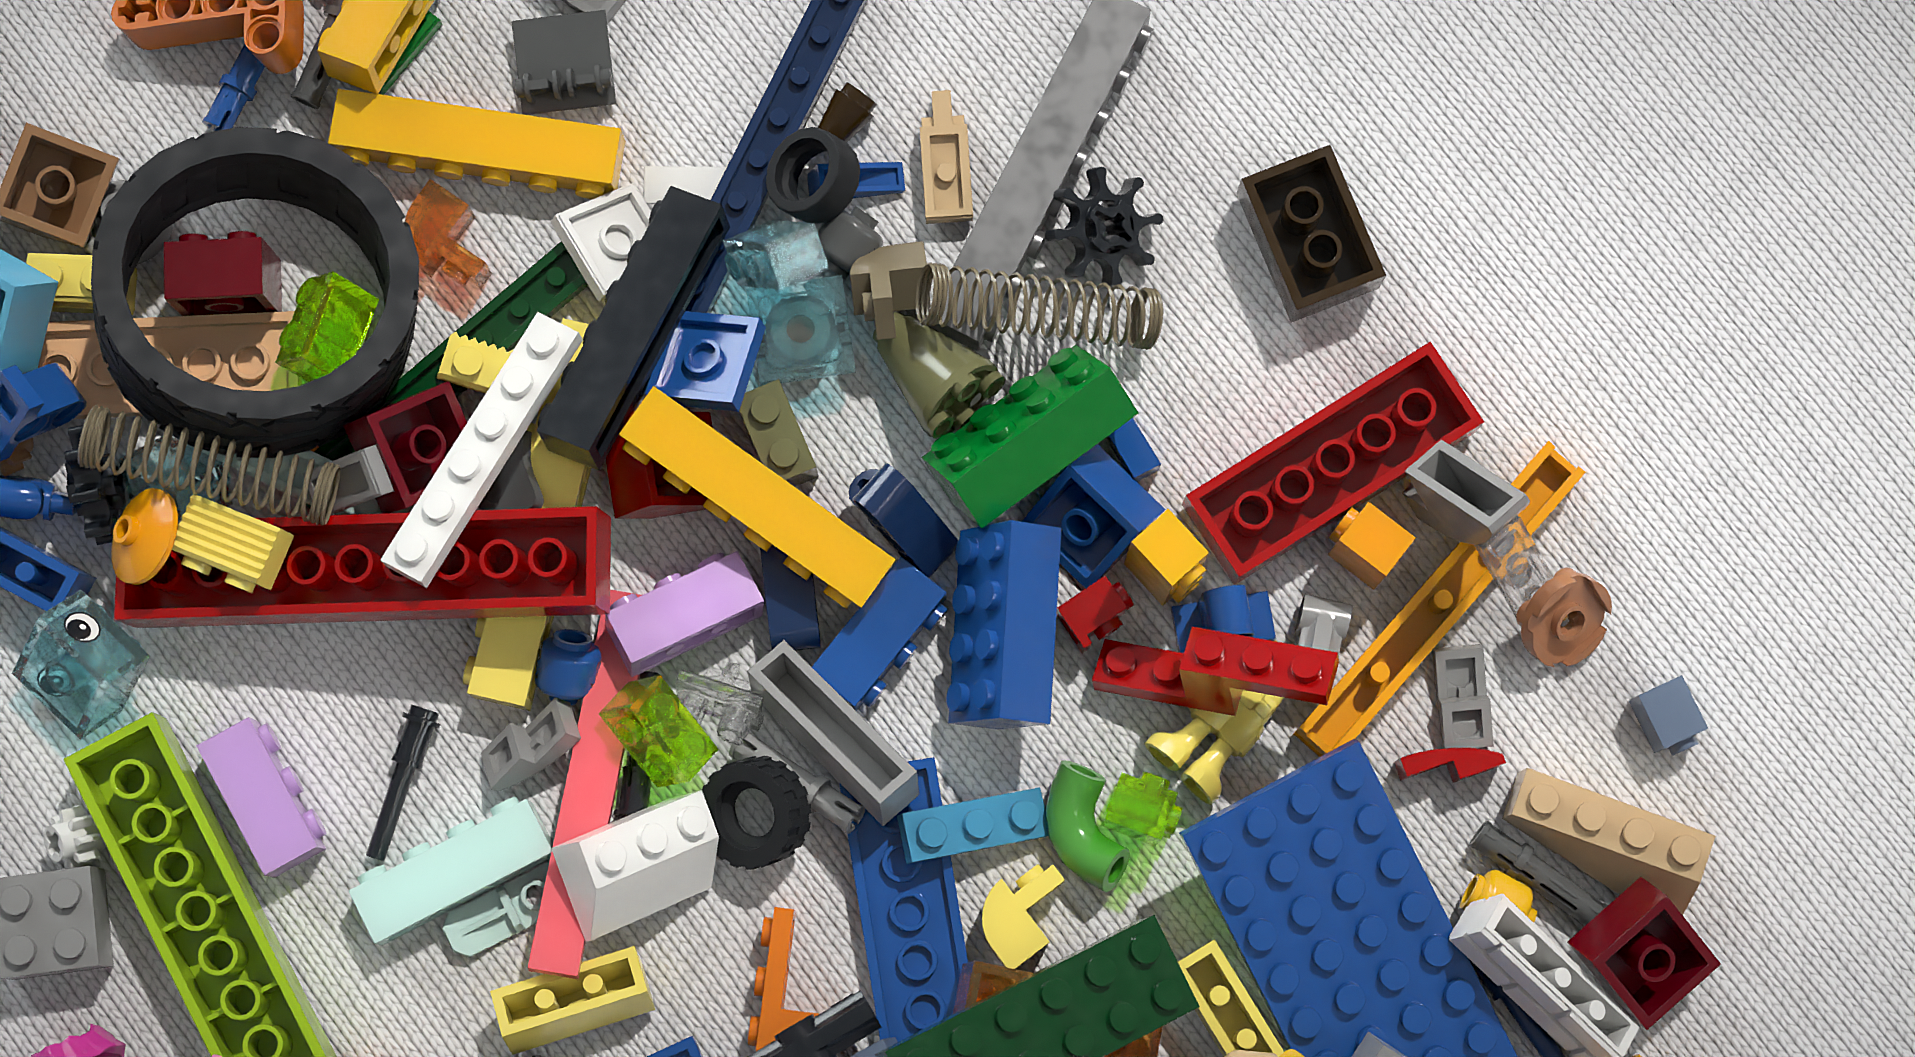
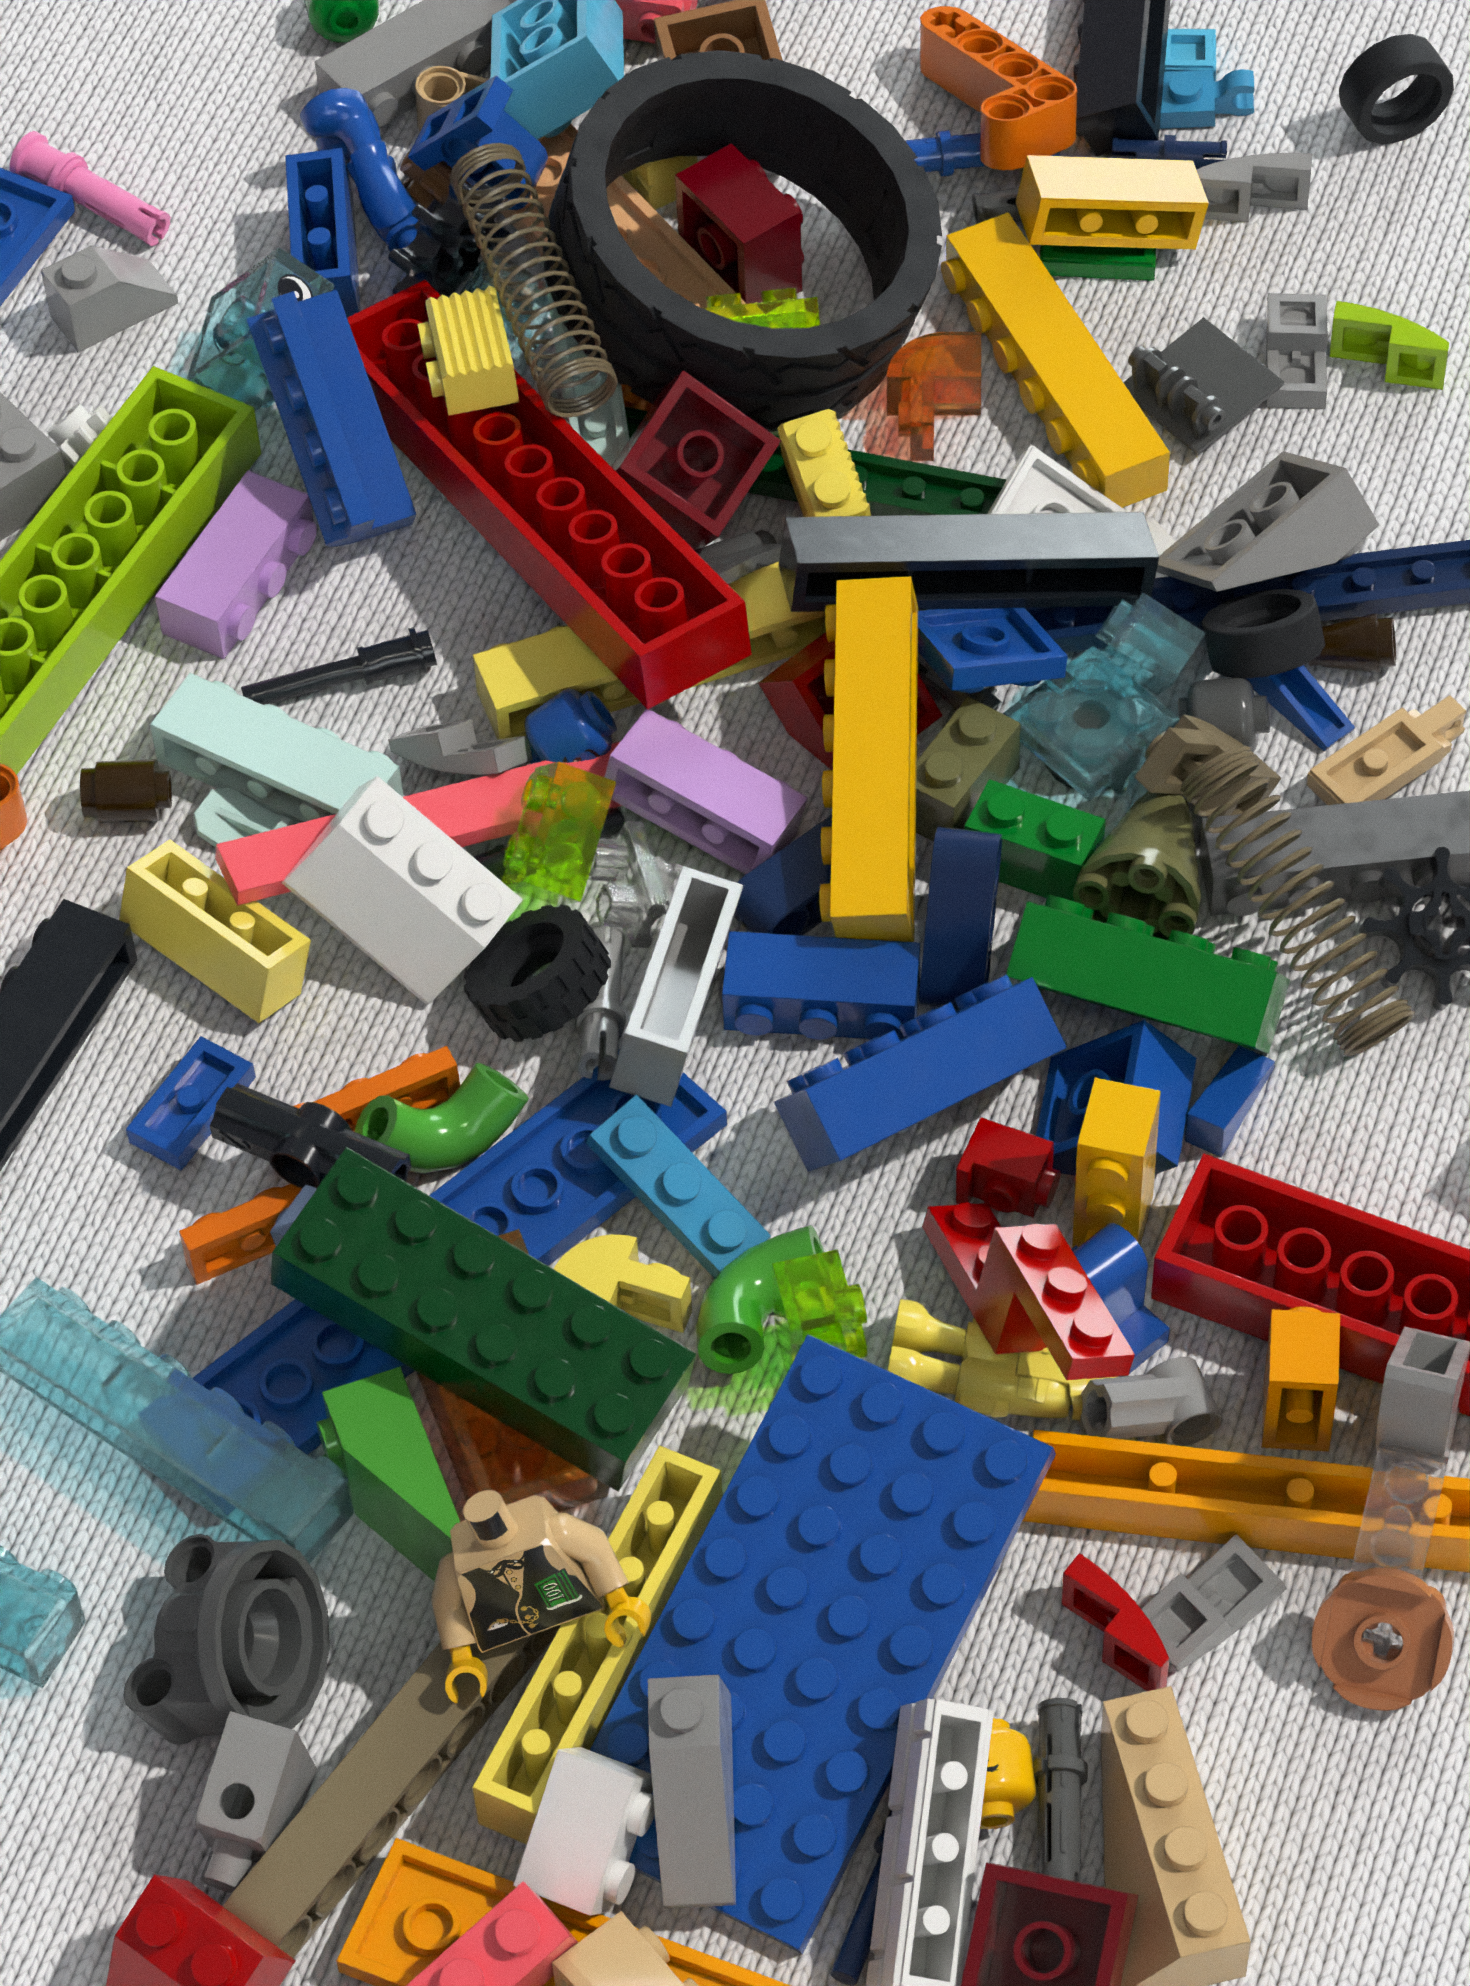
camera: 60 degrees right, 25 degrees down
(144, 536) = (422, 279): light orange dish -> none
(206, 668) = (331, 418): none -> blue brick
(361, 479) = (618, 419): light grey tile -> none
(406, 987) = (125, 791): none -> dark brown brick
(481, 450) = (730, 487): white plate -> none
(734, 115) = (1274, 525): none -> light grey slope
(828, 943) = (451, 1131): none -> bright green cylinder
(864, 428) = (1041, 838): none -> green brick
(1669, 716) = (1361, 1829): sand blue brick -> none

